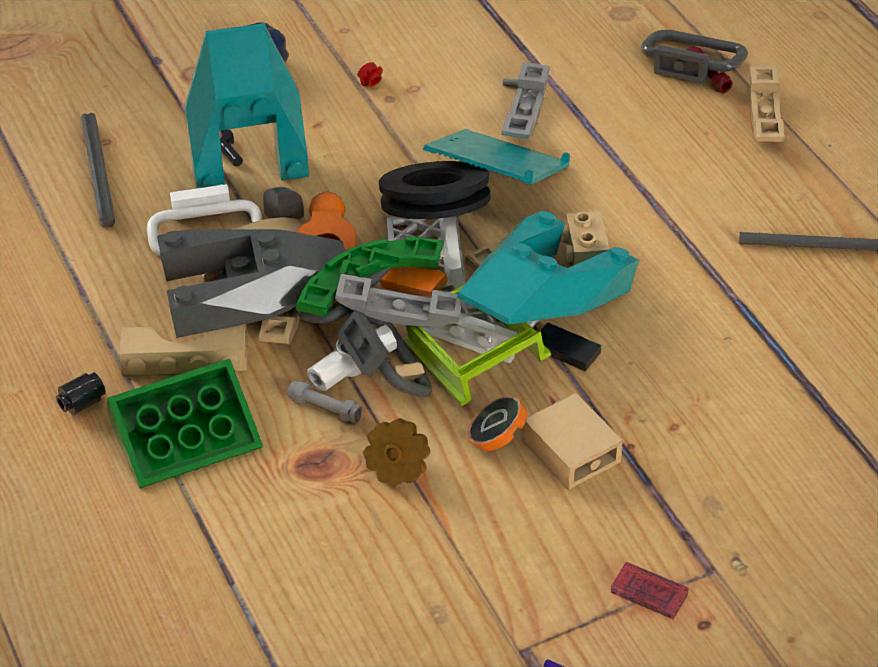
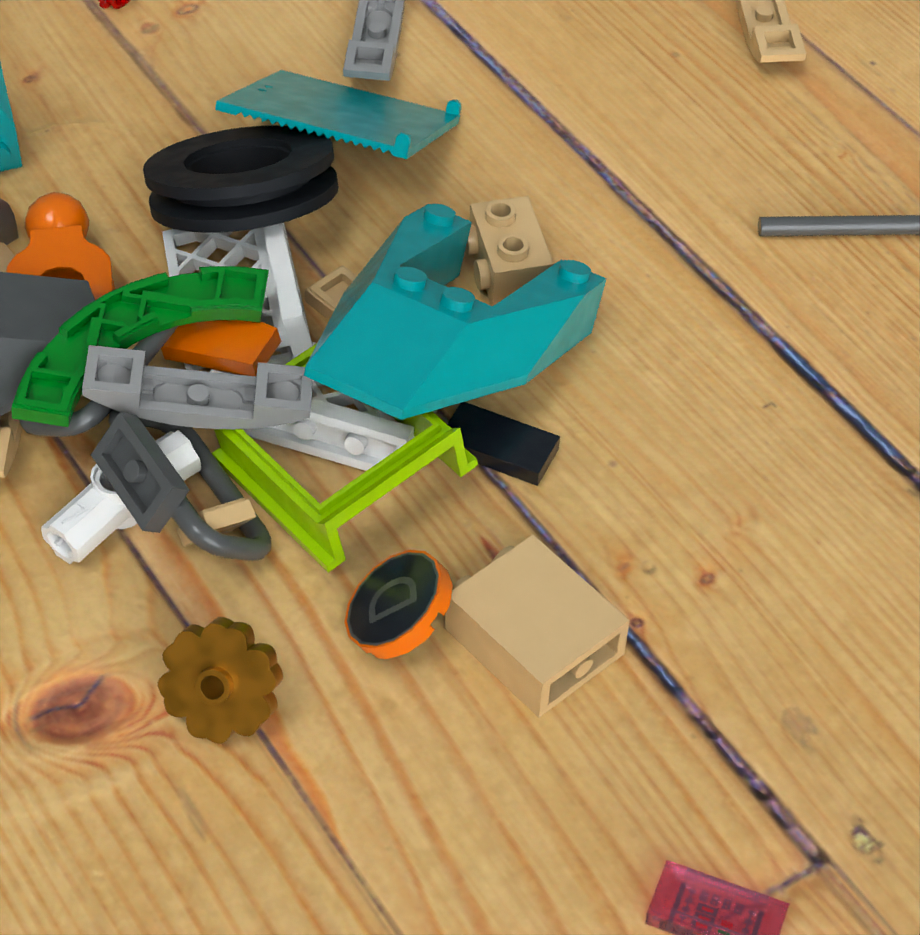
camera: 10 degrees left, 5 degrees up
(348, 411) = (34, 569): light grey bar -> none

